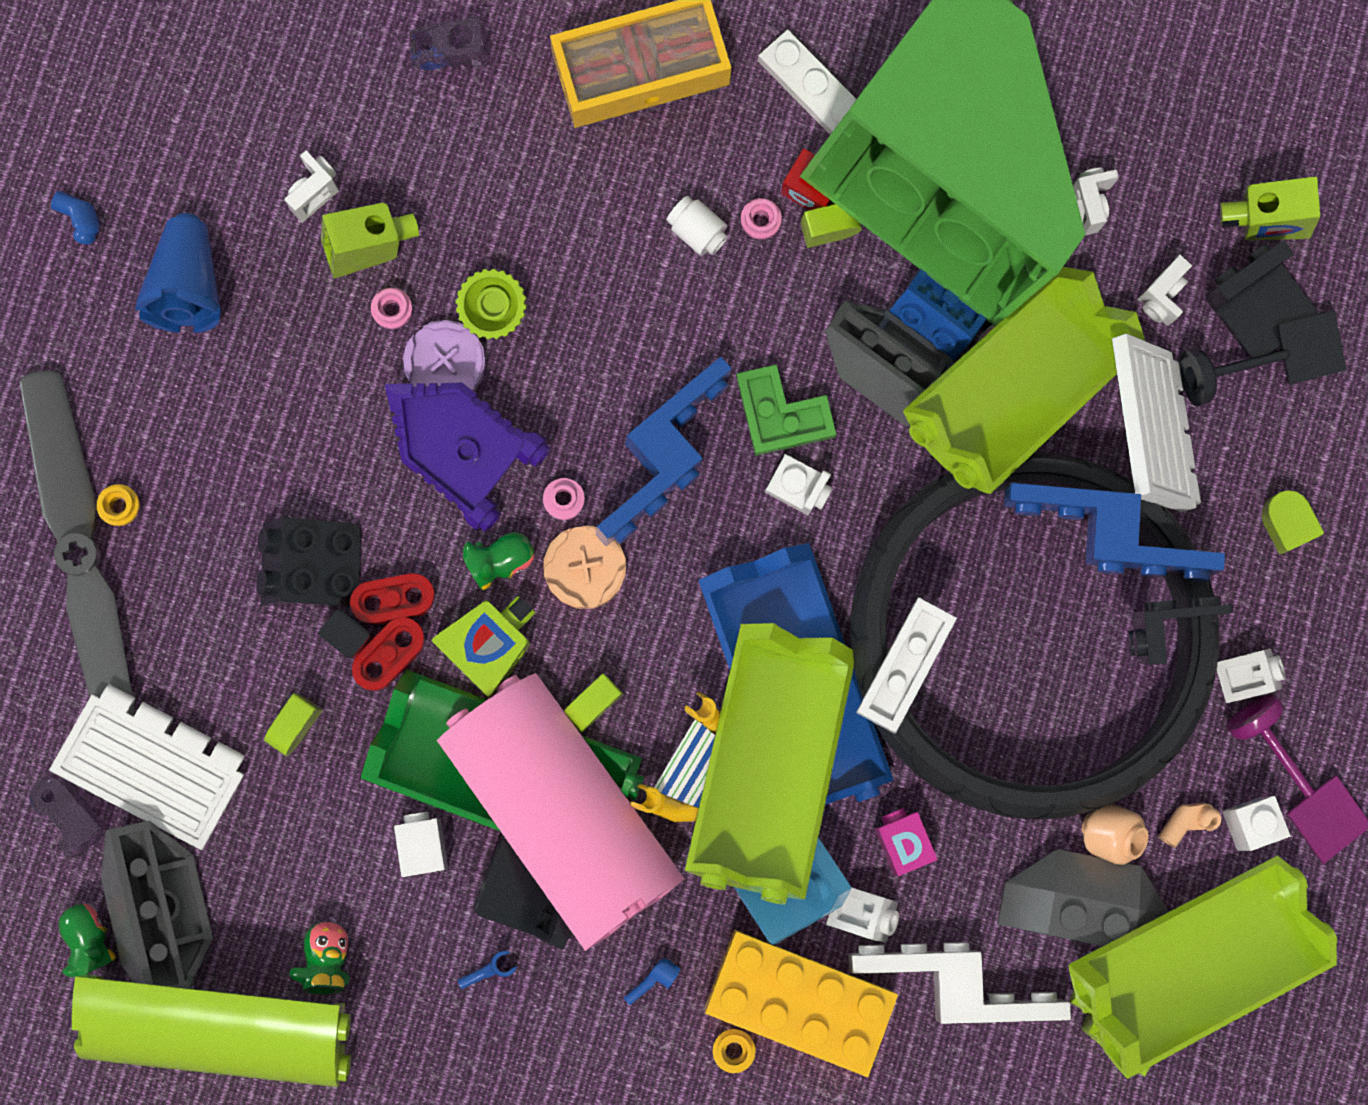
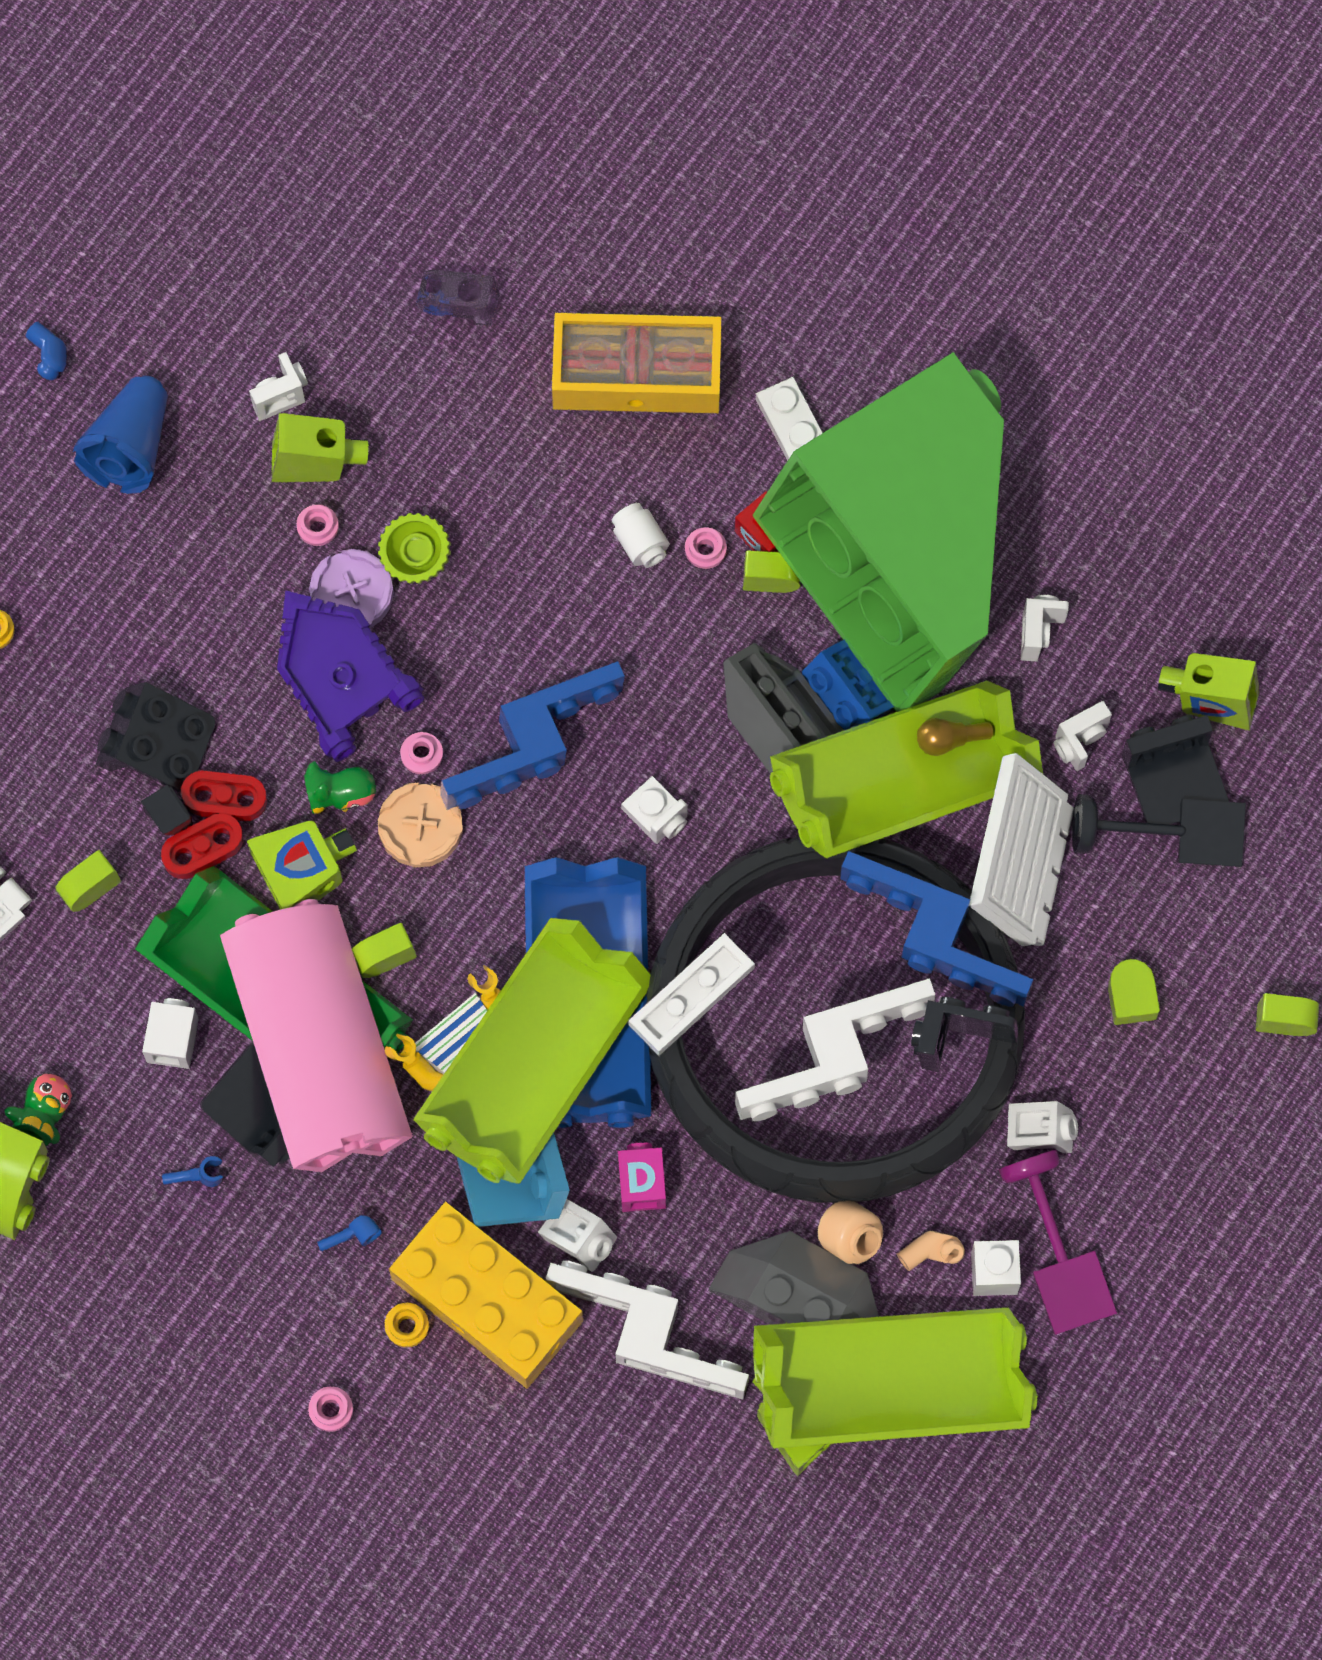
camera: 25 degrees right, 10 degrees down
(773, 422) = (655, 746): bright green plate -> none
(1045, 335) = (941, 736): none -> pearl gold piece
(1059, 679) = (835, 1051): none -> white bracket

